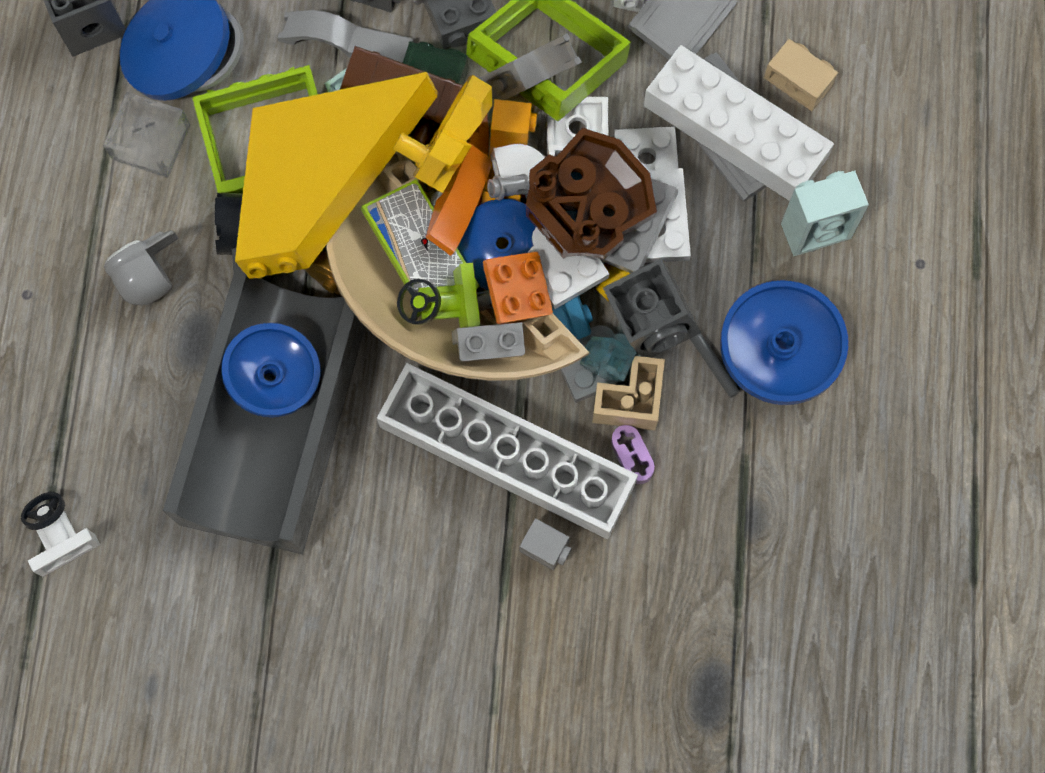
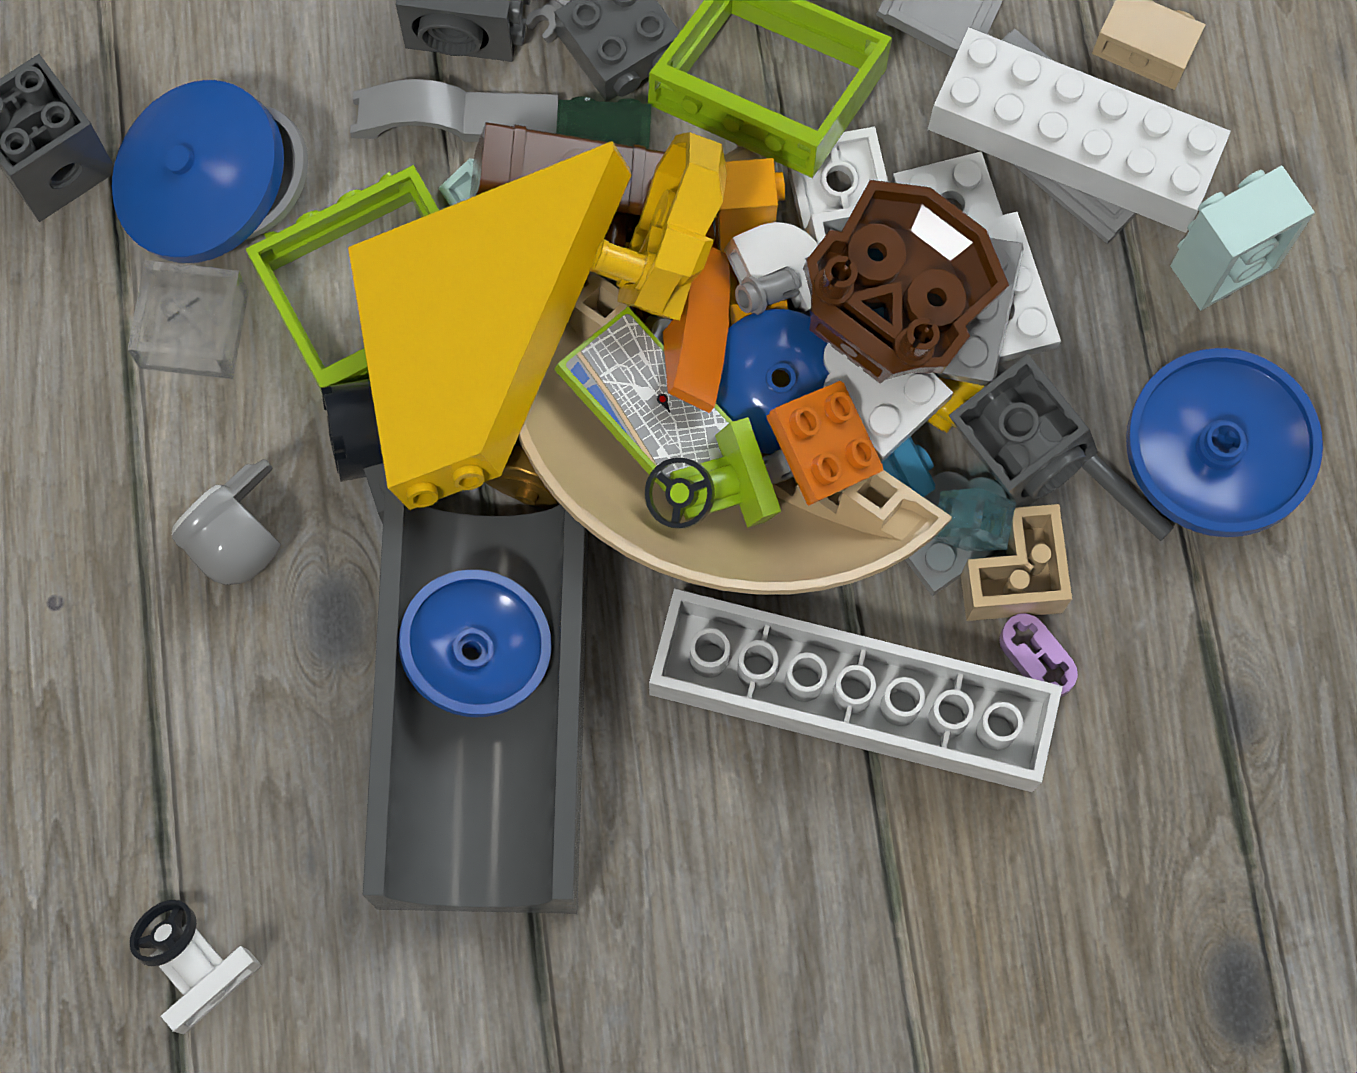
camera: 15 degrees left, 0 degrees up
(489, 341) = (802, 532): light grey bracket -> none
(532, 68) = (769, 100): light grey piece -> none
(545, 545) = (944, 821): light grey brick -> none

